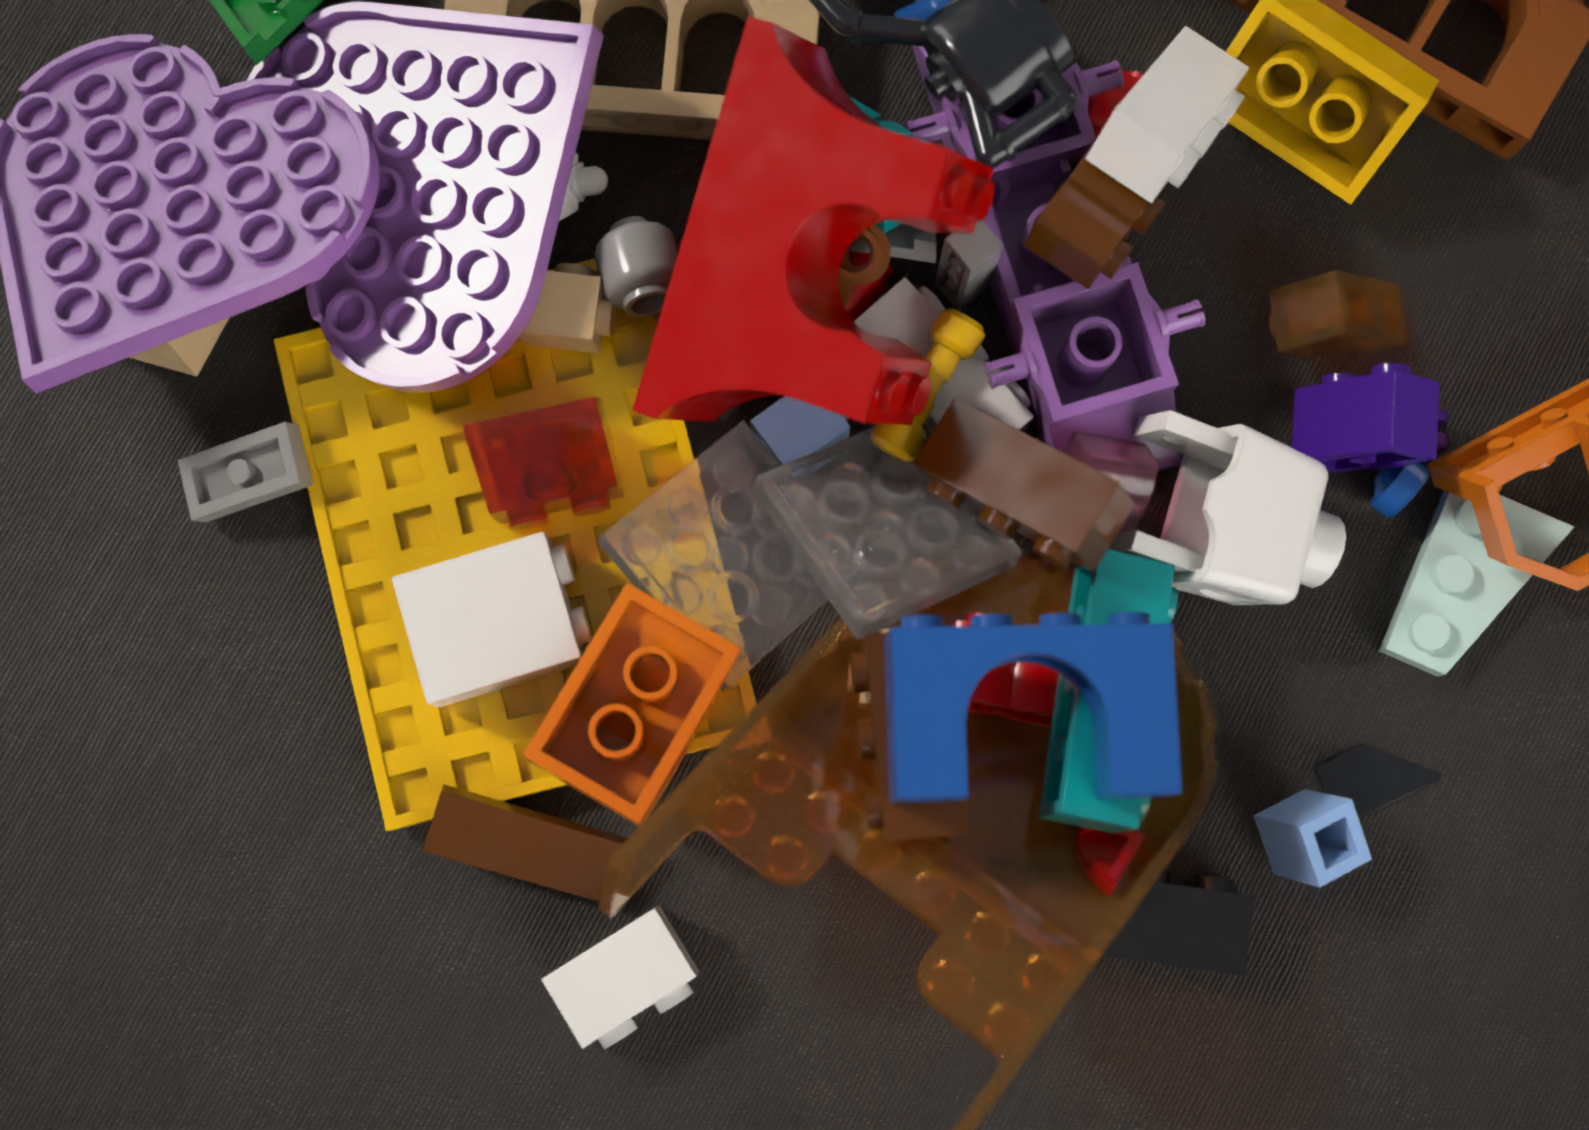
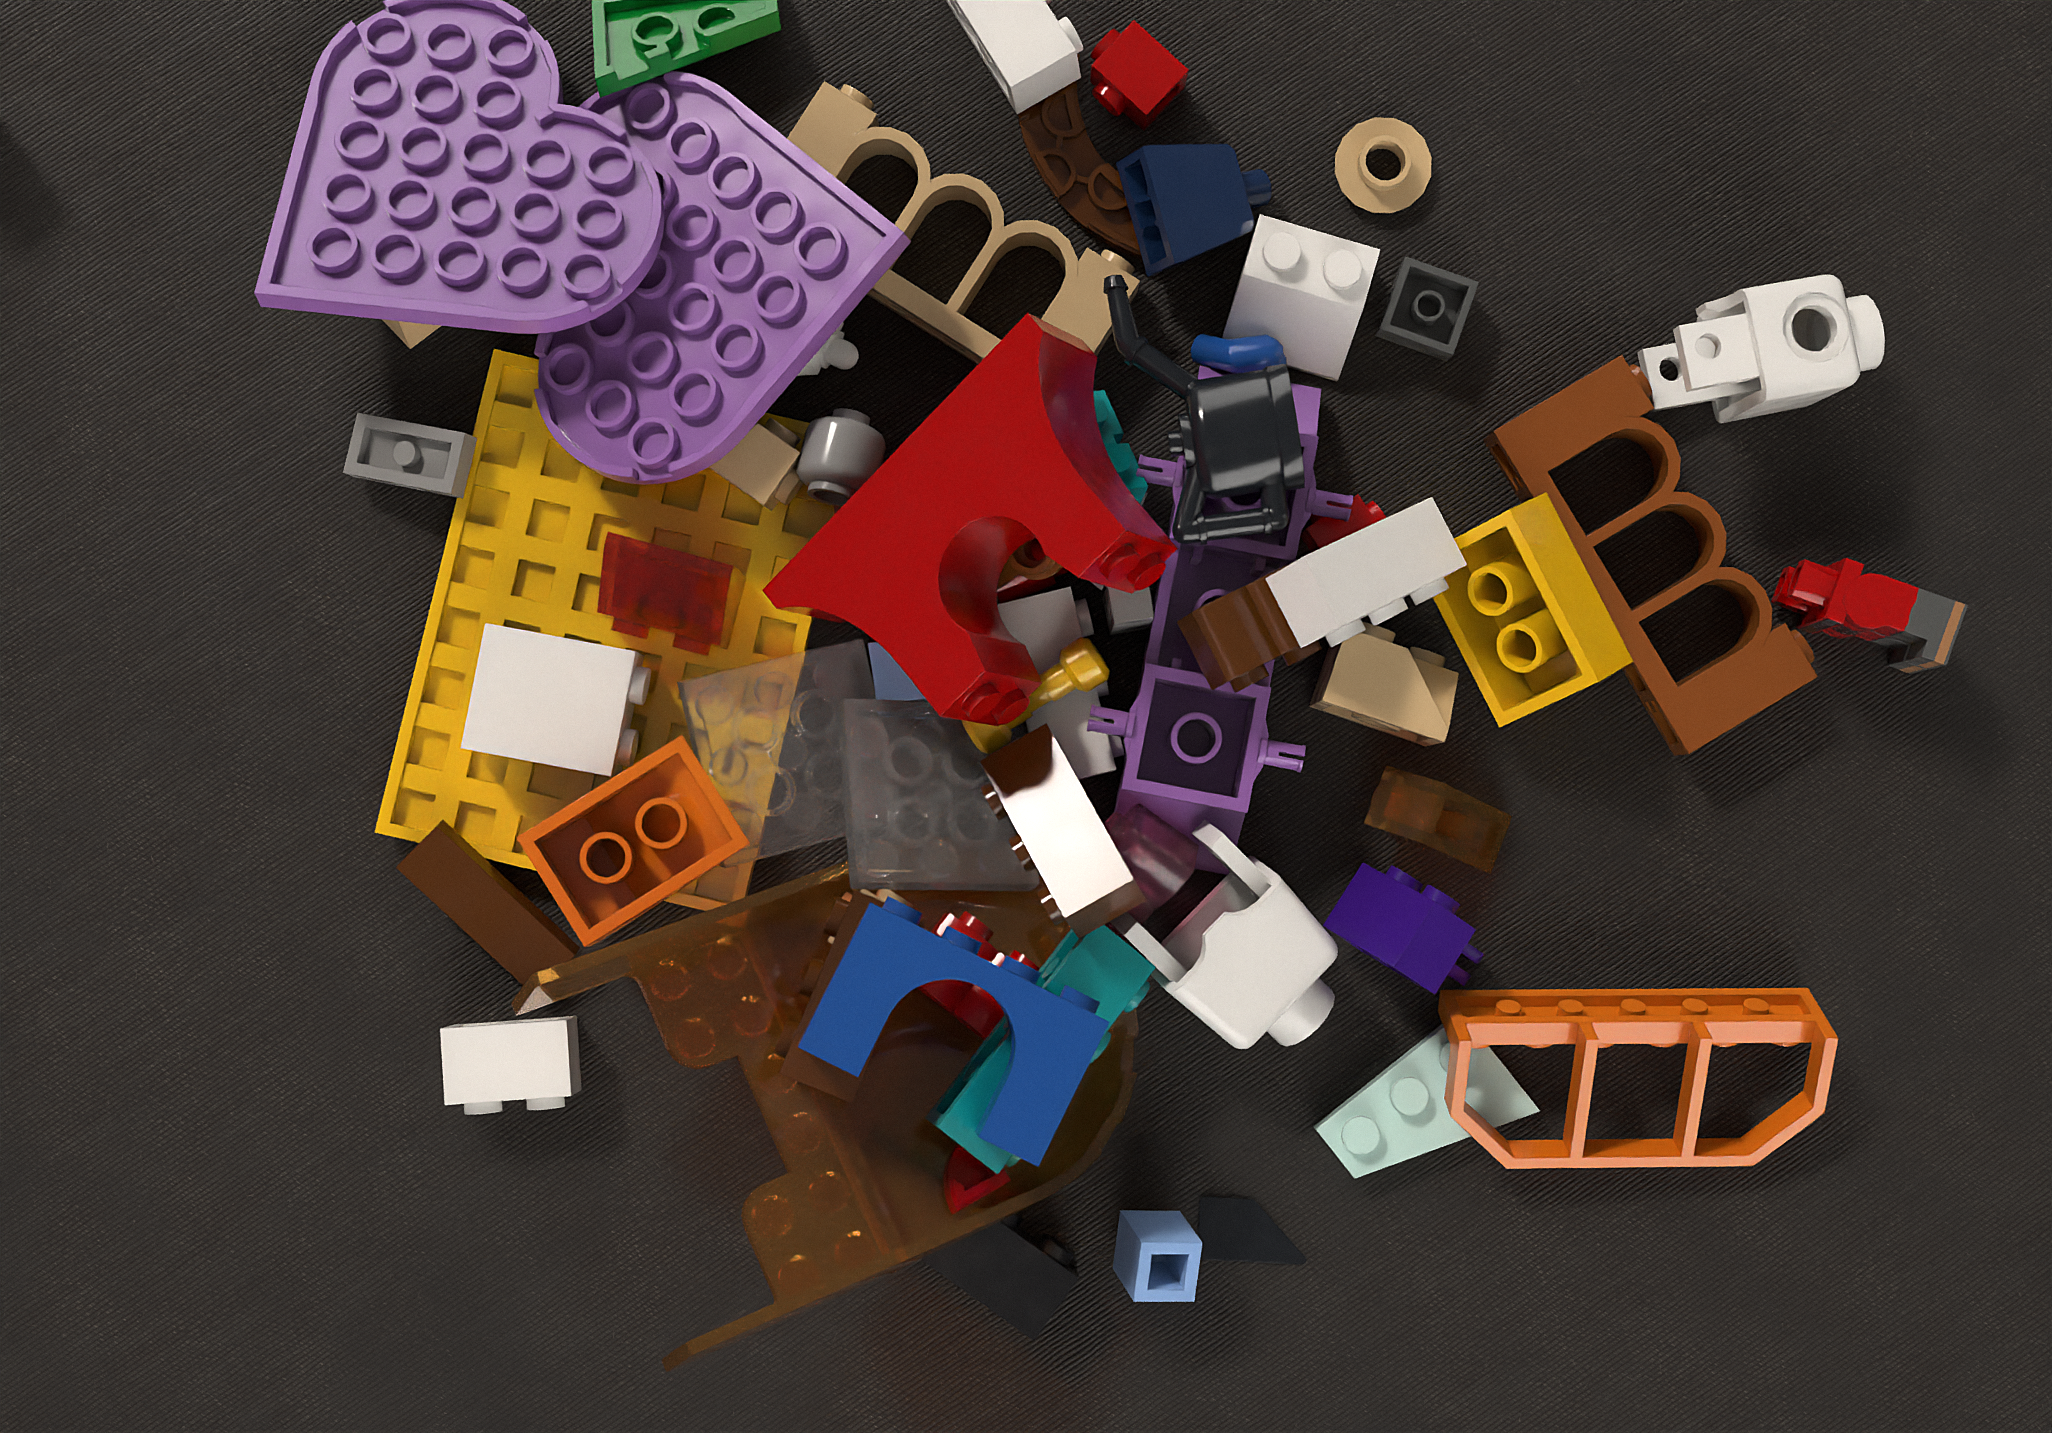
camera: 25 degrees right, 5 degrees up
(1232, 222) = (1387, 687): none -> tan slope
(1397, 487) = (1401, 997): blue tile -> none

